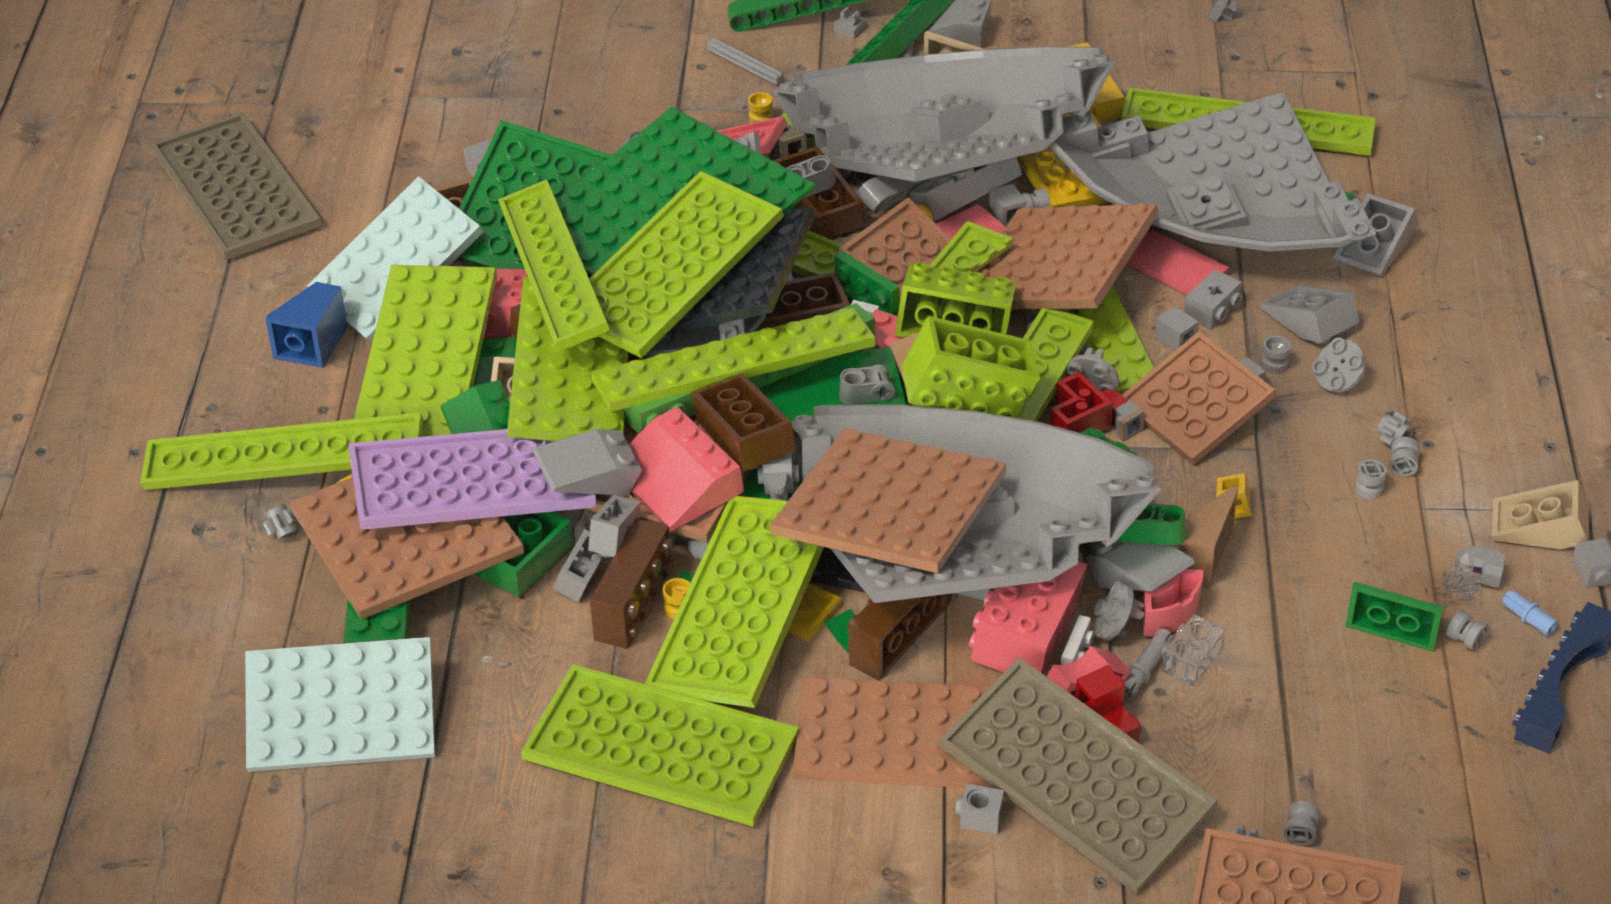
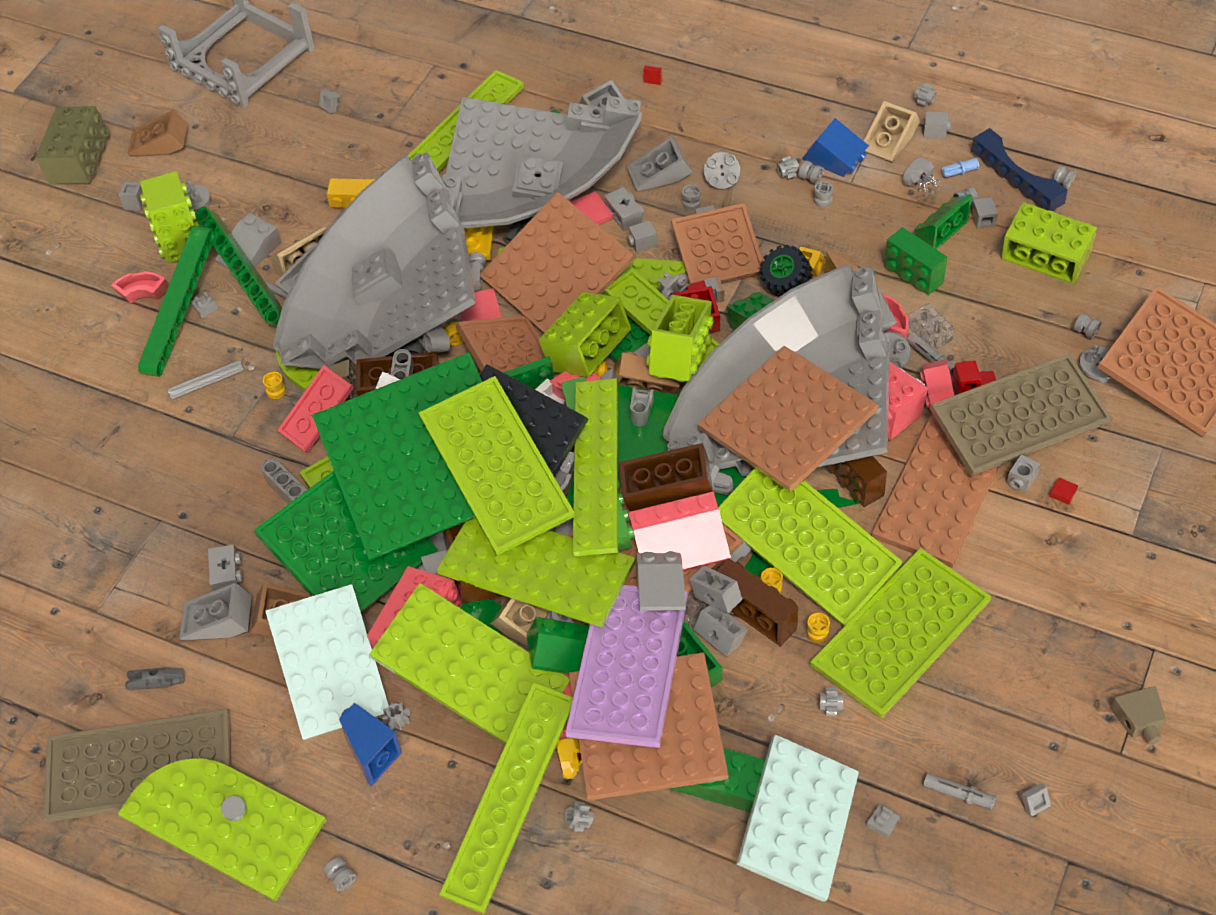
camera: 65 degrees left, 10 degrees up
(155, 361) = (339, 873): none -> light grey wheel
(185, 264) = (184, 810): none -> lime plate
(193, 253) = (233, 808): none -> light grey tile
(340, 159) = (154, 678): none -> dark grey hinge
(358, 342) = (396, 716): none -> light grey gear
(373, 796) = (883, 821): none -> light grey tile
(435, 167) = (216, 614): none -> light grey slope
(438, 868) = (960, 791): none -> light grey pin
(521, 698) = (831, 701): none -> light grey gear
(553, 266) = (448, 540): lime plate -> none
(628, 659) = (818, 627): none -> yellow wheel
(972, 248) = (522, 314): lime wing -> none
(980, 865) = (1064, 490): none -> red tile
(1190, 470) = (784, 269): none -> black wheel
(1293, 596) = (915, 261): none -> green brick
(1427, 733) = (1048, 243): none -> lime brick
(1452, 657) = (984, 213): none -> light grey brick
(1462, 466) = (837, 149): none -> blue slope
(1476, 256) = (652, 75): none -> red tile
(1593, 733) = (1064, 176): none -> light grey wheel

